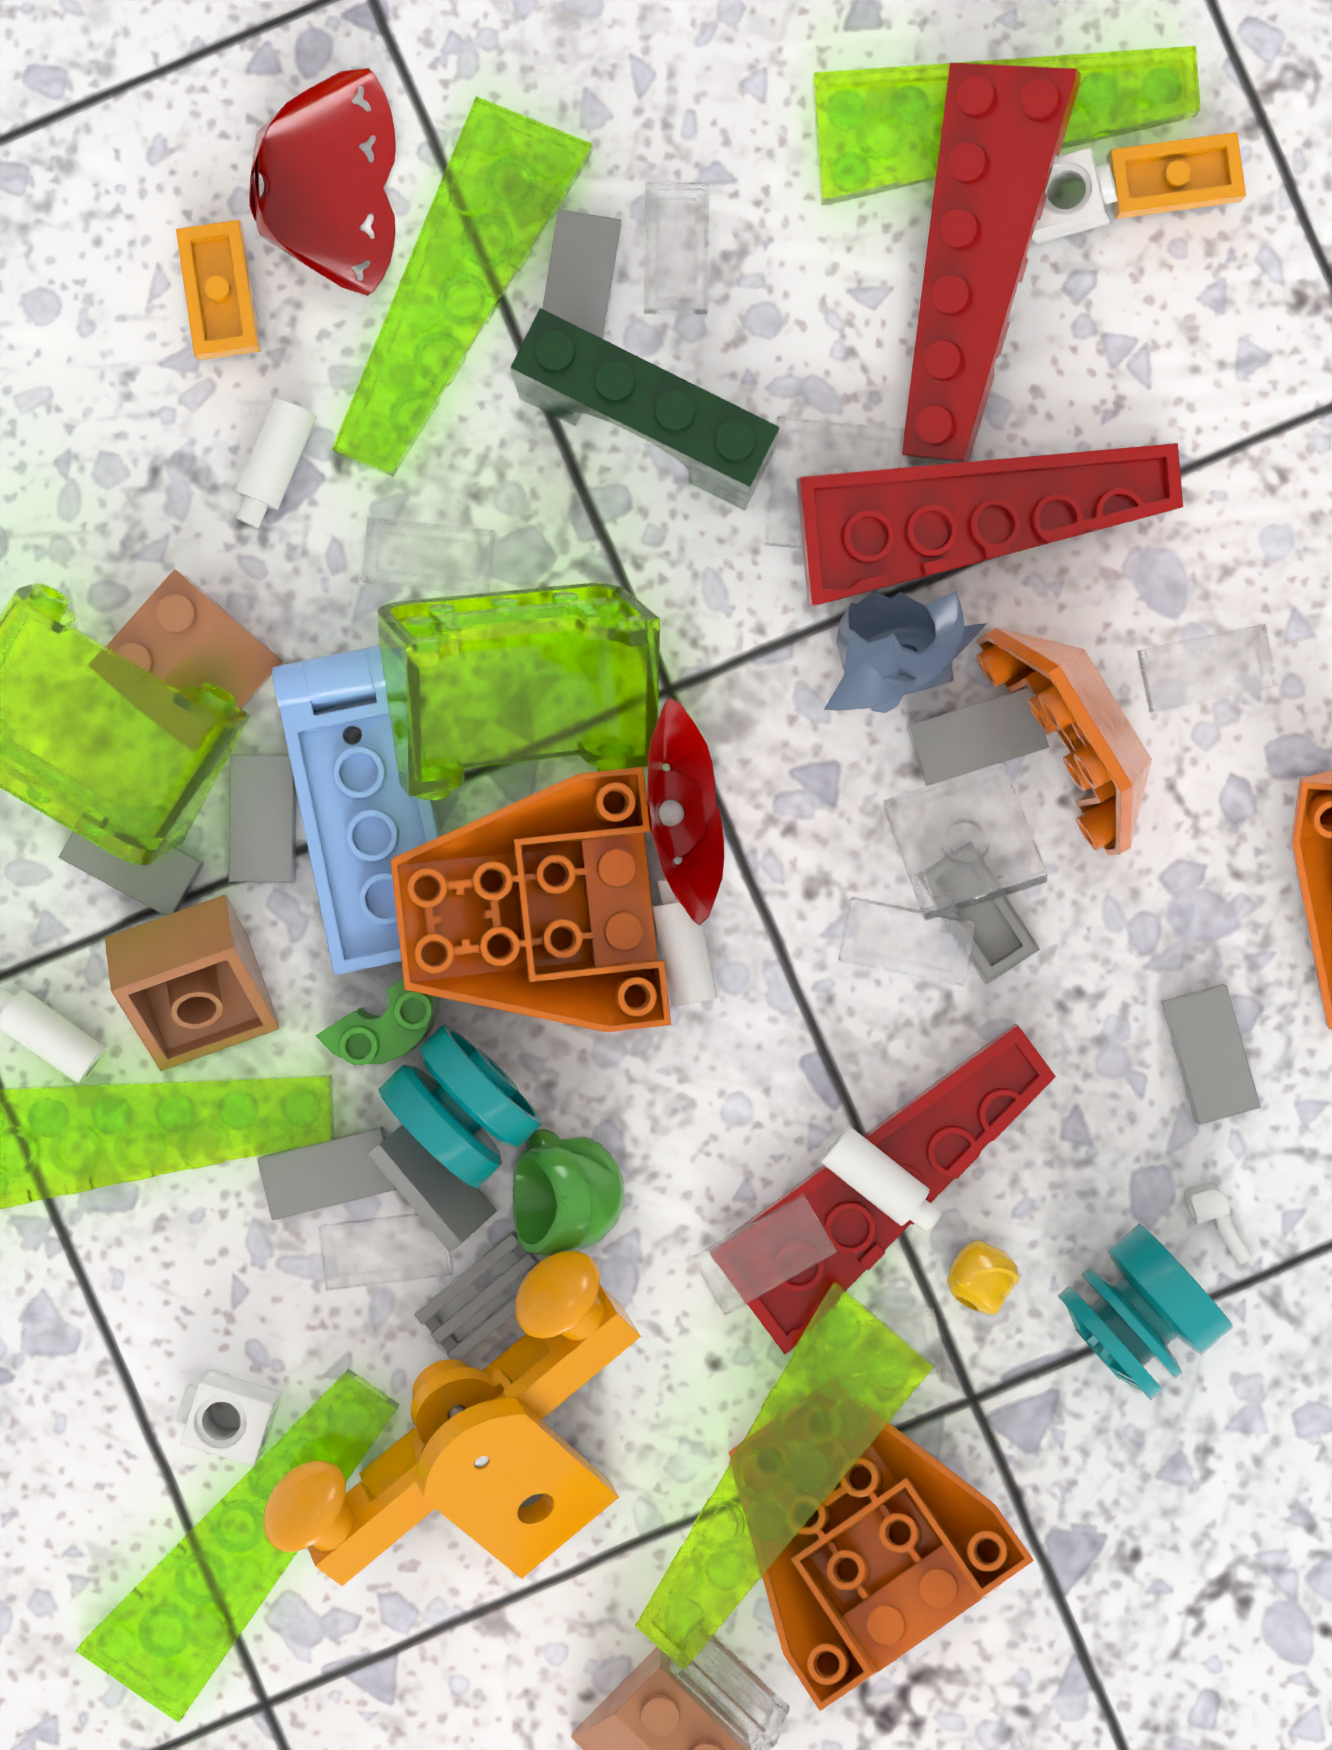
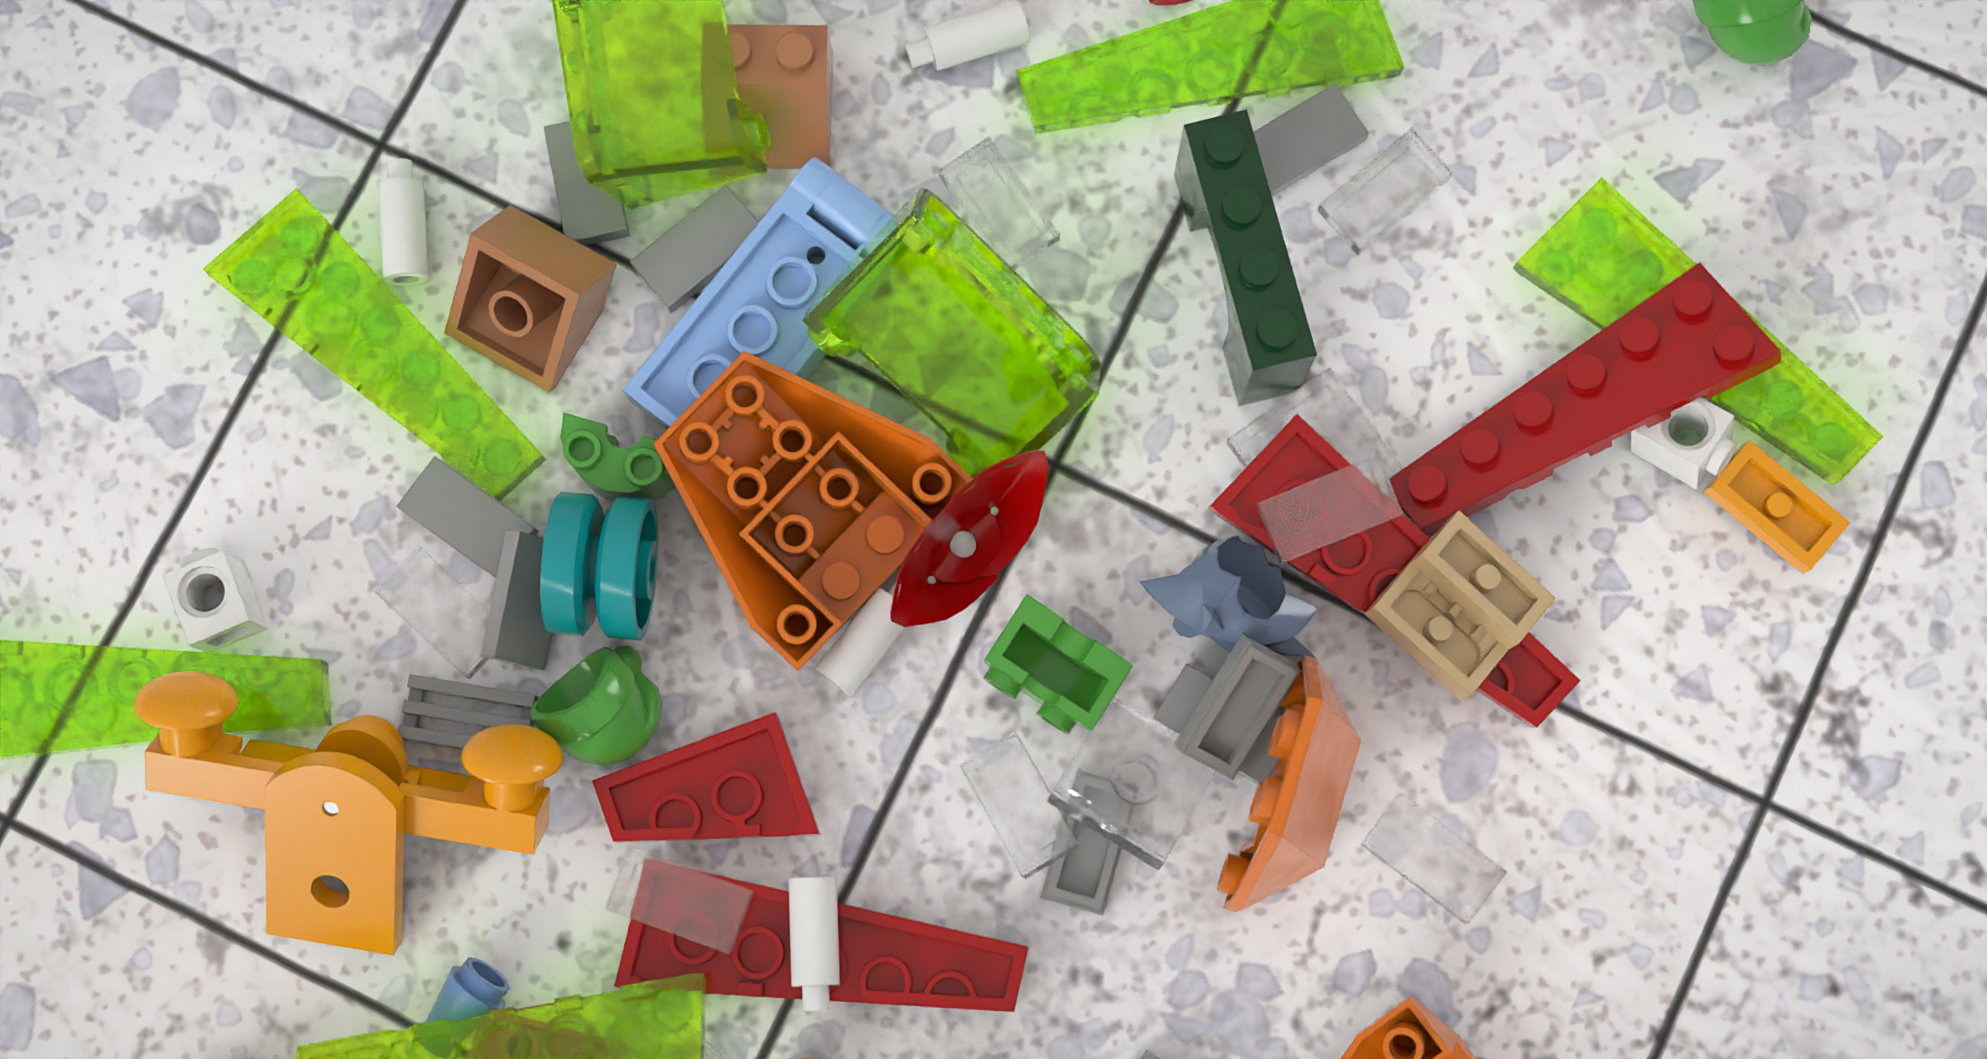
camera: 55 degrees right, 10 degrees down
(697, 1466) = (470, 992): none -> medium blue cone
(698, 1159) = (711, 789): none -> red wing
(830, 824) = (1055, 667): none -> bright green cylinder
(893, 517) = (1329, 509): none -> clear tile
(979, 718) = (1237, 707): none -> light grey tile
(1048, 484) = (1460, 605): none -> tan slope

